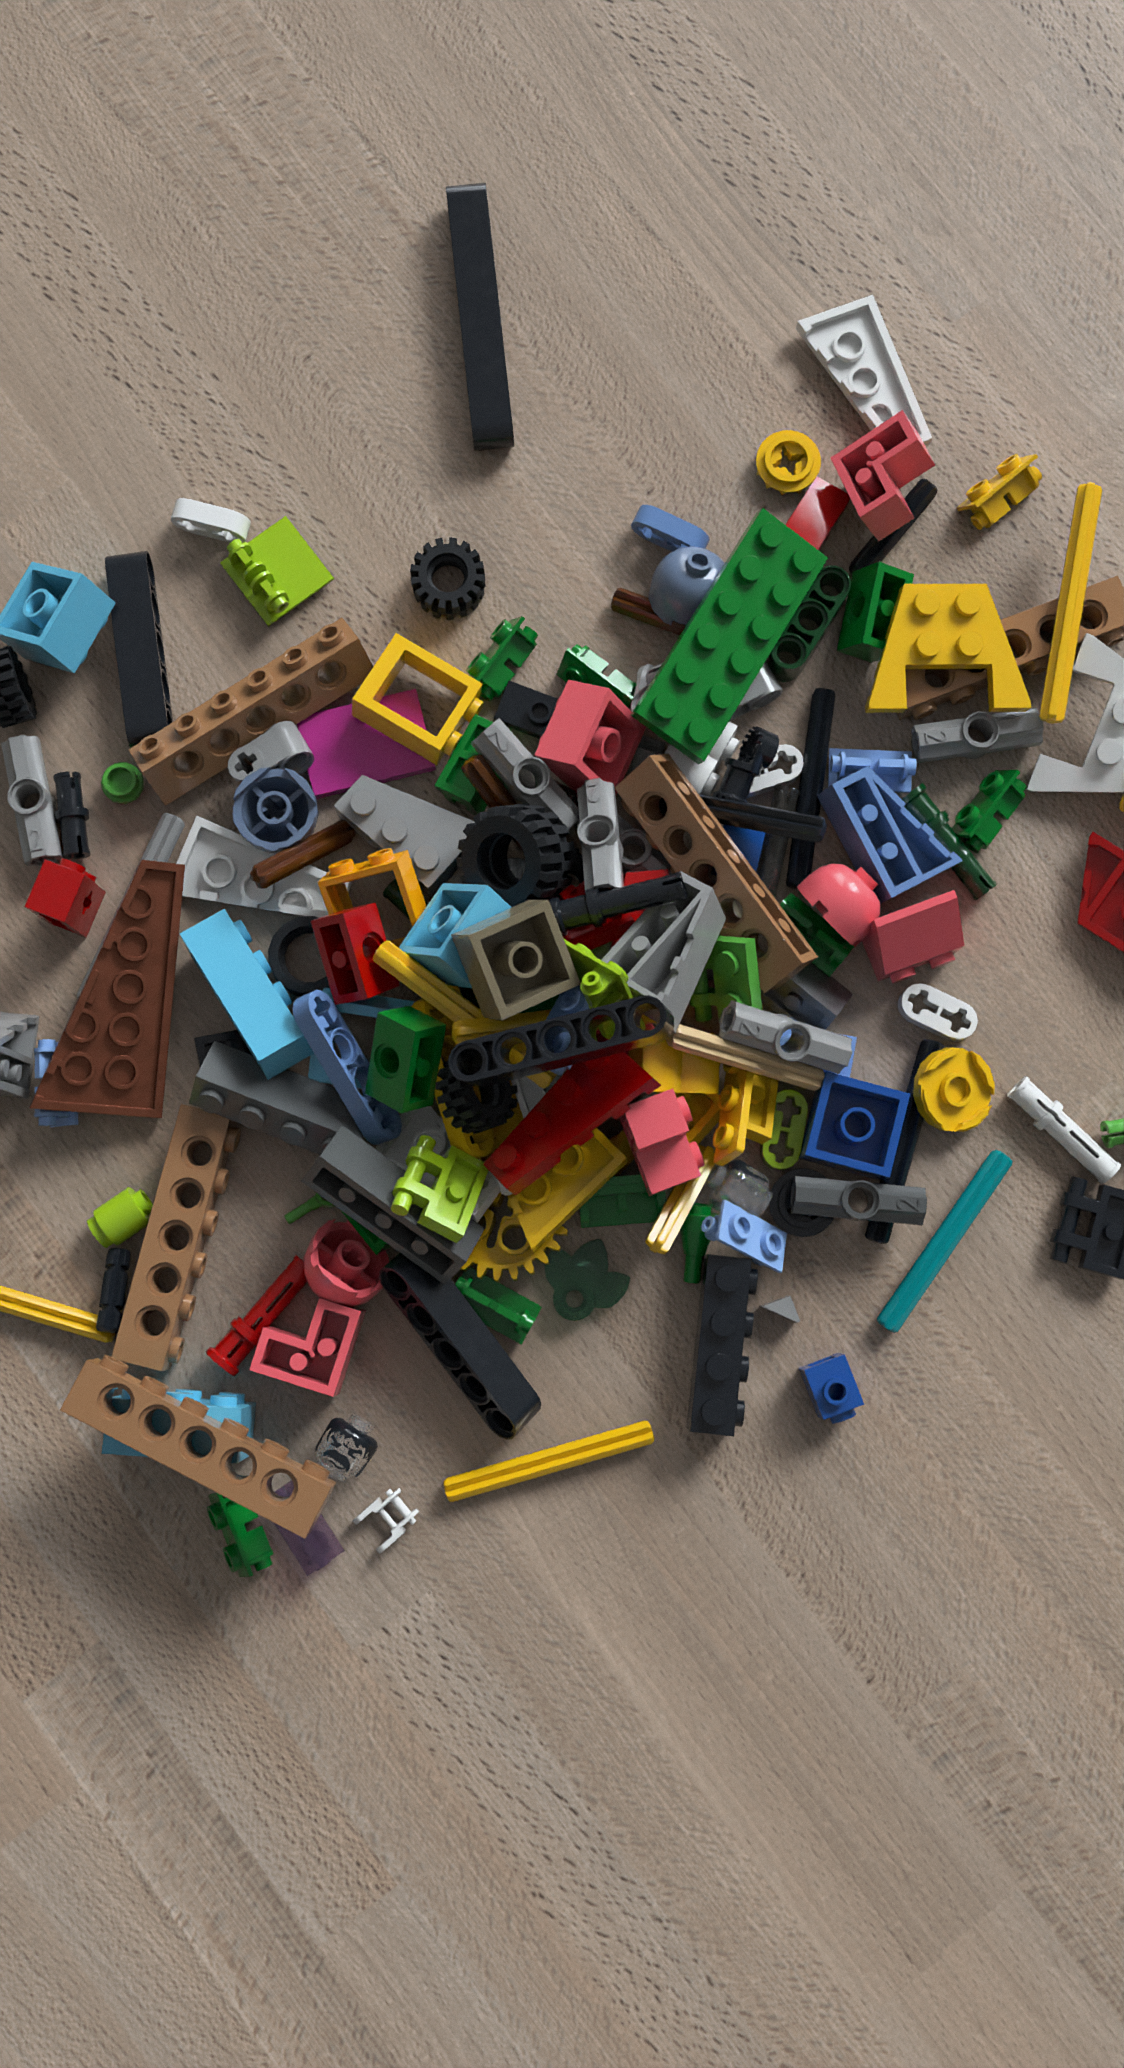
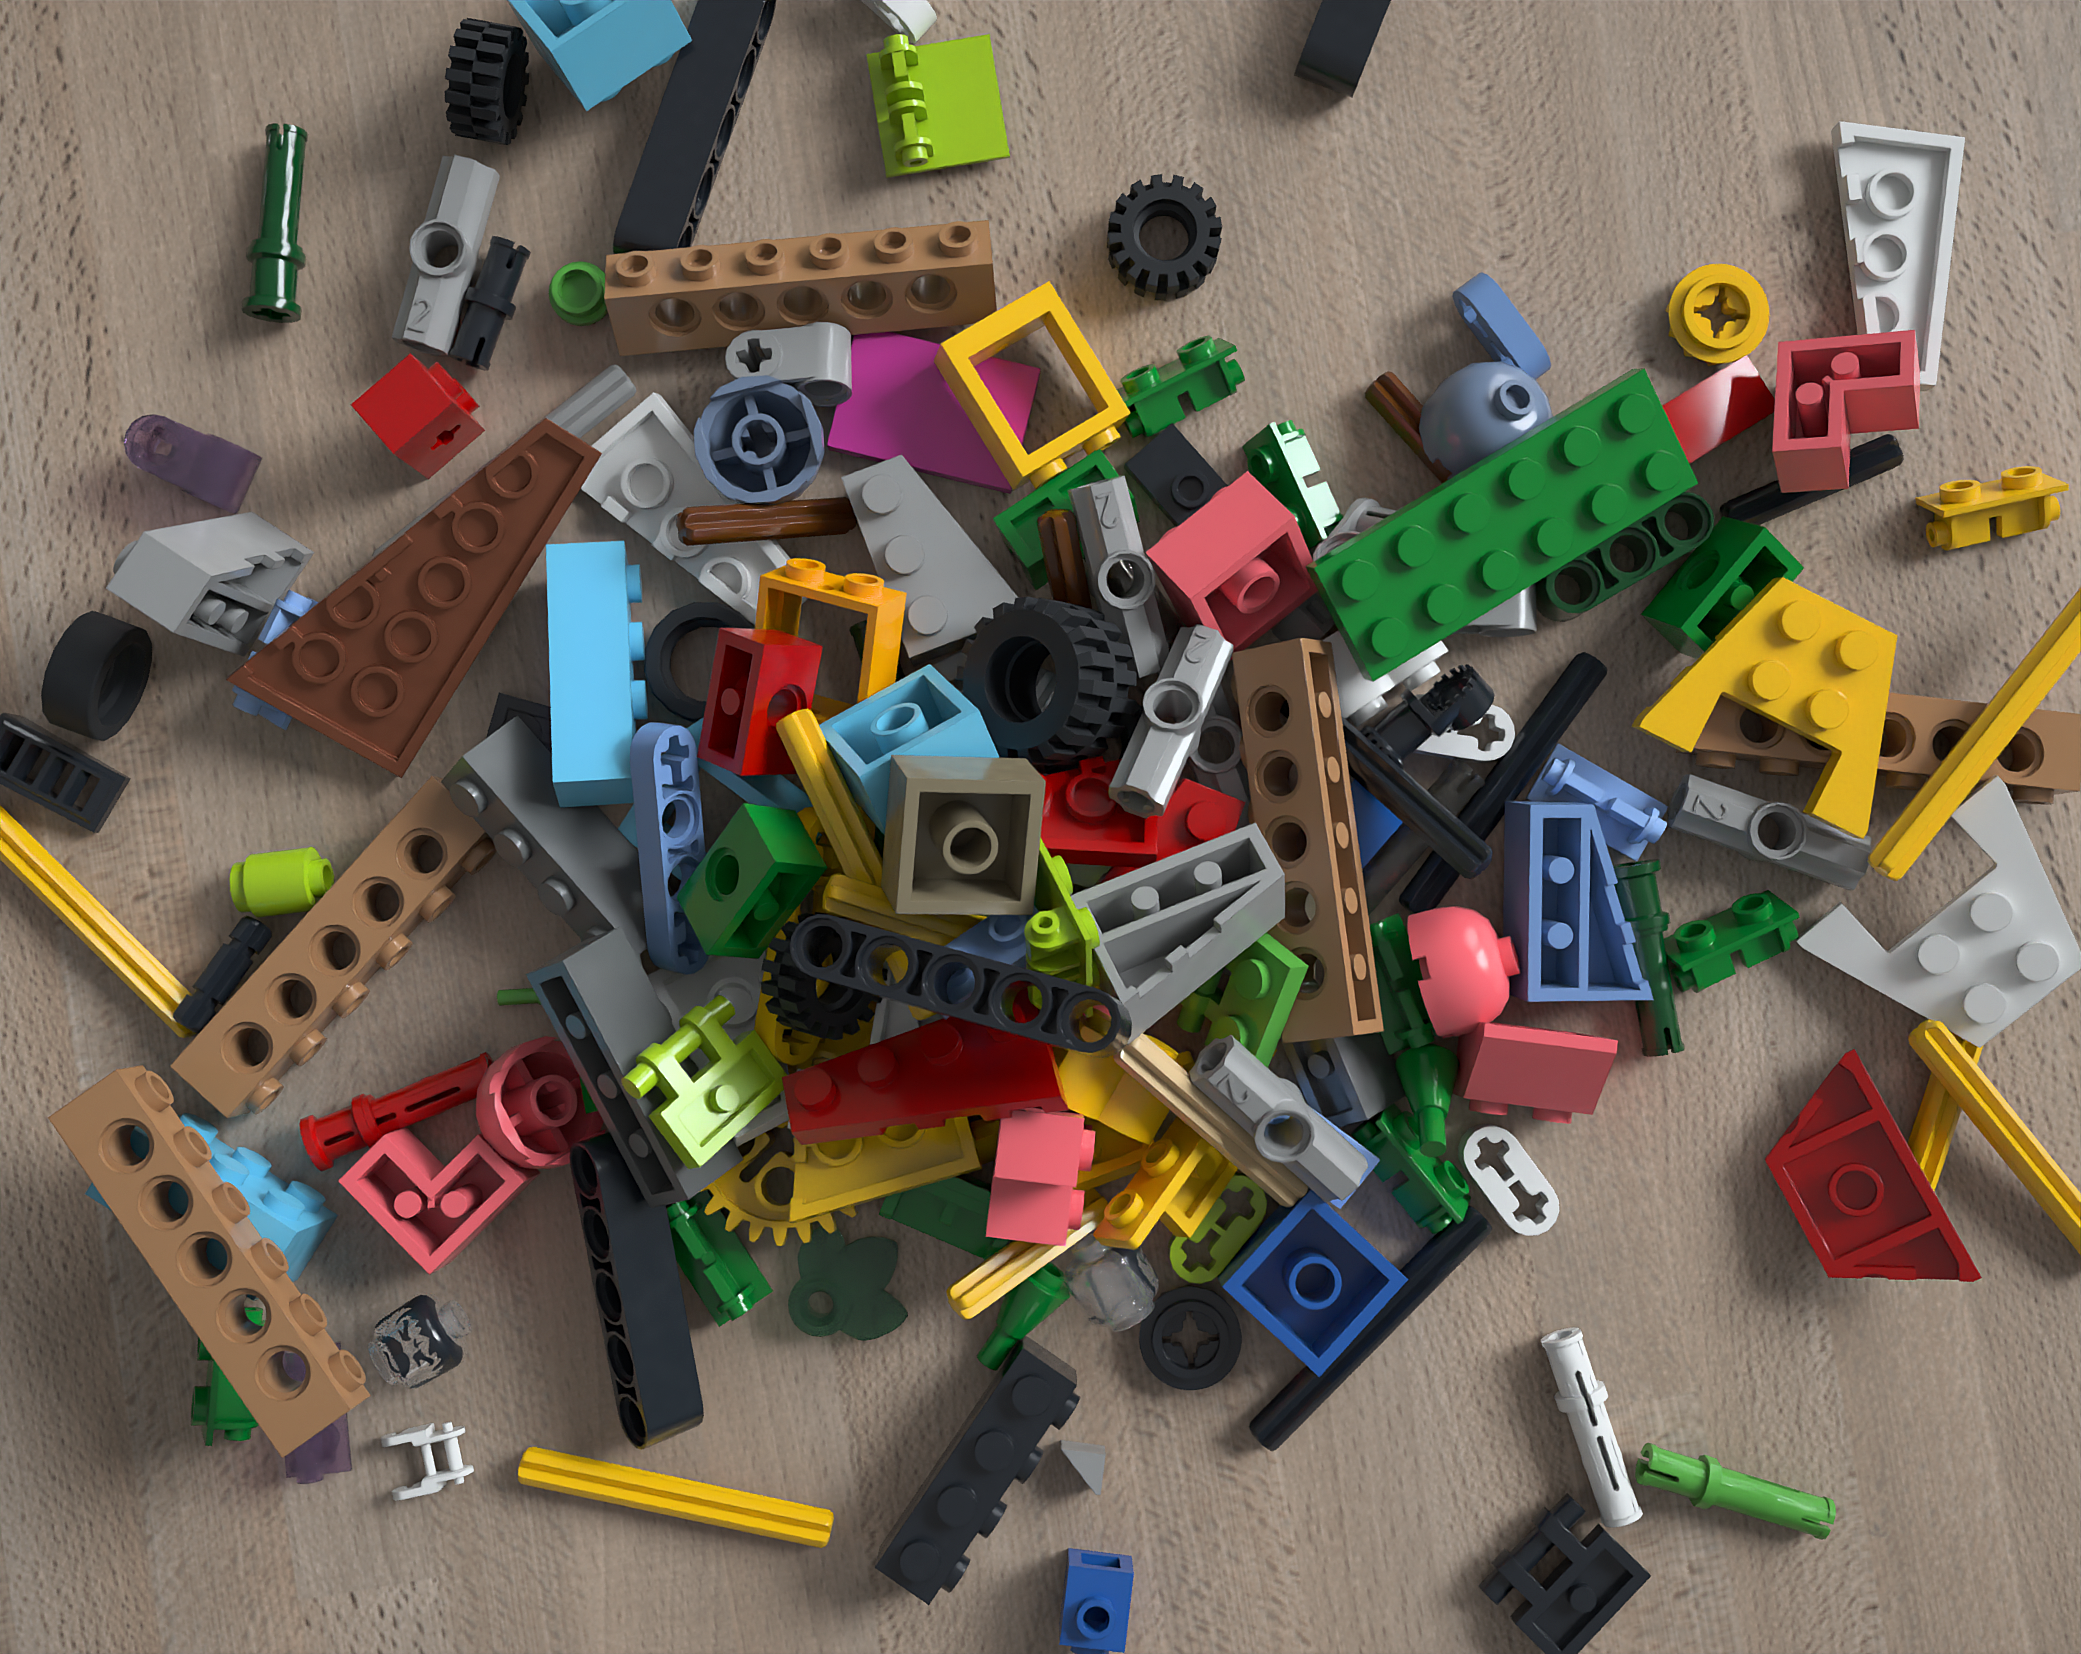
camera: 30 degrees right, 5 degrees up
(597, 906) = (1114, 814): black pin -> none
(747, 1235) = (1088, 1349): light blue hinge -> none
(860, 978) = (1428, 1083): none -> green cone
(885, 1201) = (1293, 1405): dark grey piece -> none
(894, 1038) = (1431, 1185): none -> green hinge
(944, 1241) = (1351, 1488): teal axle -> none
(953, 1089) = (1472, 1296): yellow tile -> none

